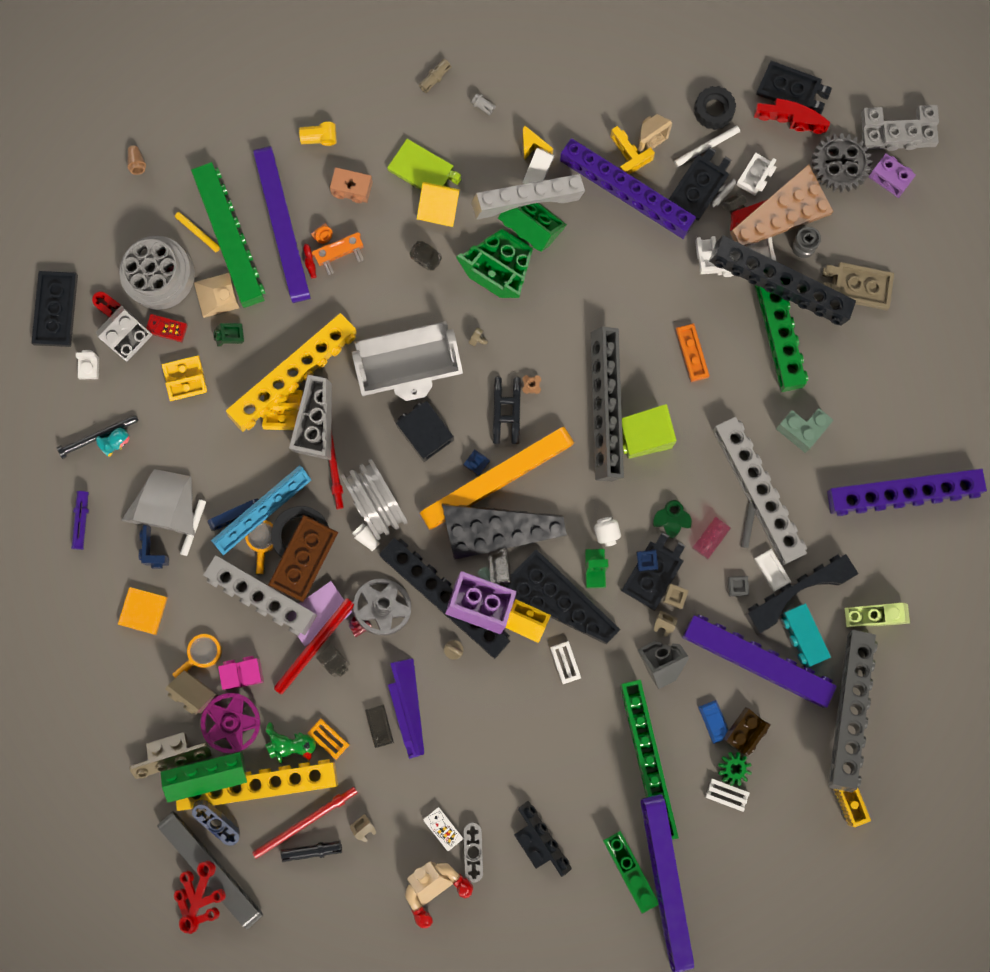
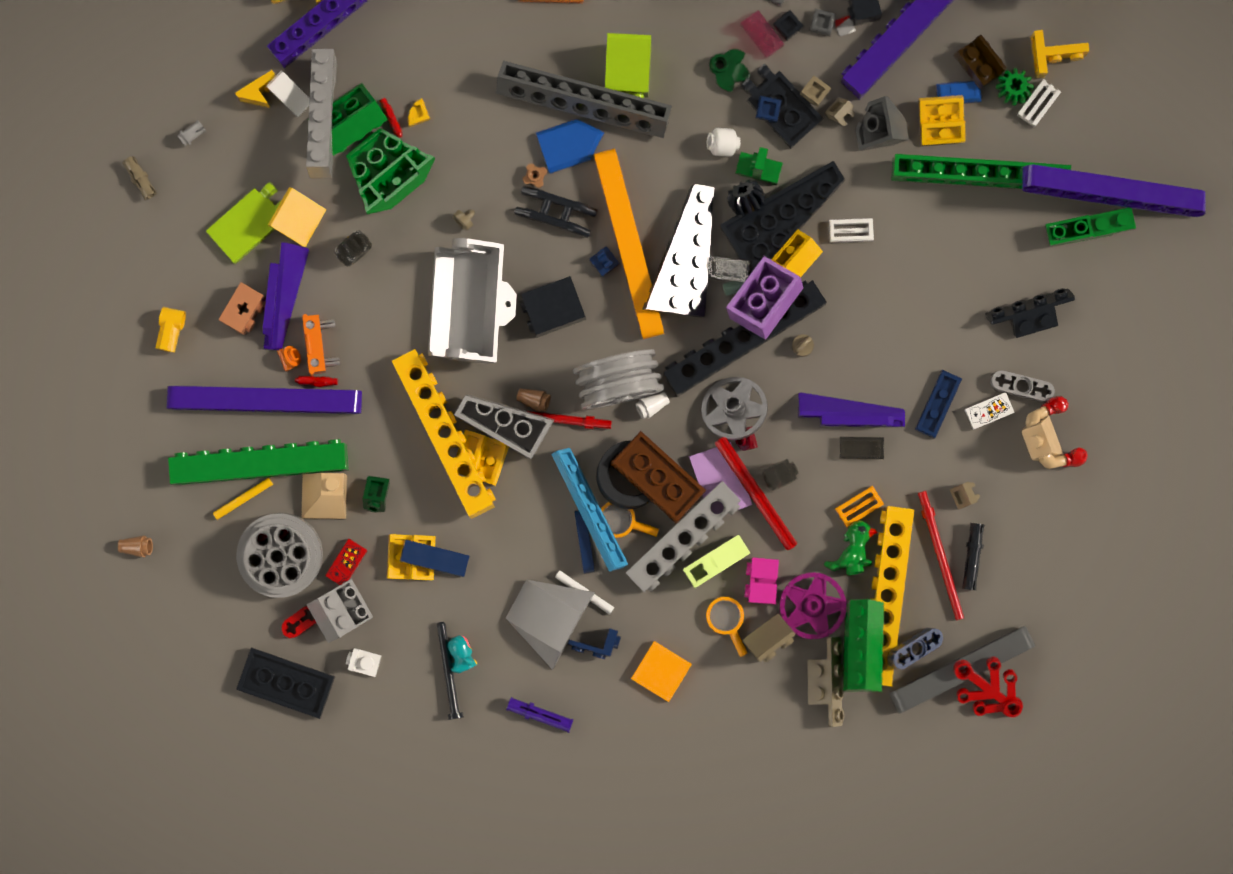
camera: 65 degrees left, 5 degrees up
(187, 396) = (434, 558): none -> dark blue tile
(246, 629) = (716, 561): none -> yellowish green slope
(343, 439) = (535, 399): none -> medium nougat cone
(373, 212) = (282, 293): none -> dark purple wedge
(436, 782) = (938, 404): none -> dark blue tile
(545, 255) = (388, 112): none -> red piece
(555, 276) = (418, 113): none -> yellow tile
(564, 563) = (746, 197): none -> black gear
(566, 404) = (568, 144): none -> blue tile
(685, 713) = (942, 120): none -> yellow slope
(726, 557) = (788, 25): none -> black tile
(741, 606) = (844, 26): none -> light grey sticker
(774, 795) = (1053, 53): none -> yellow bracket

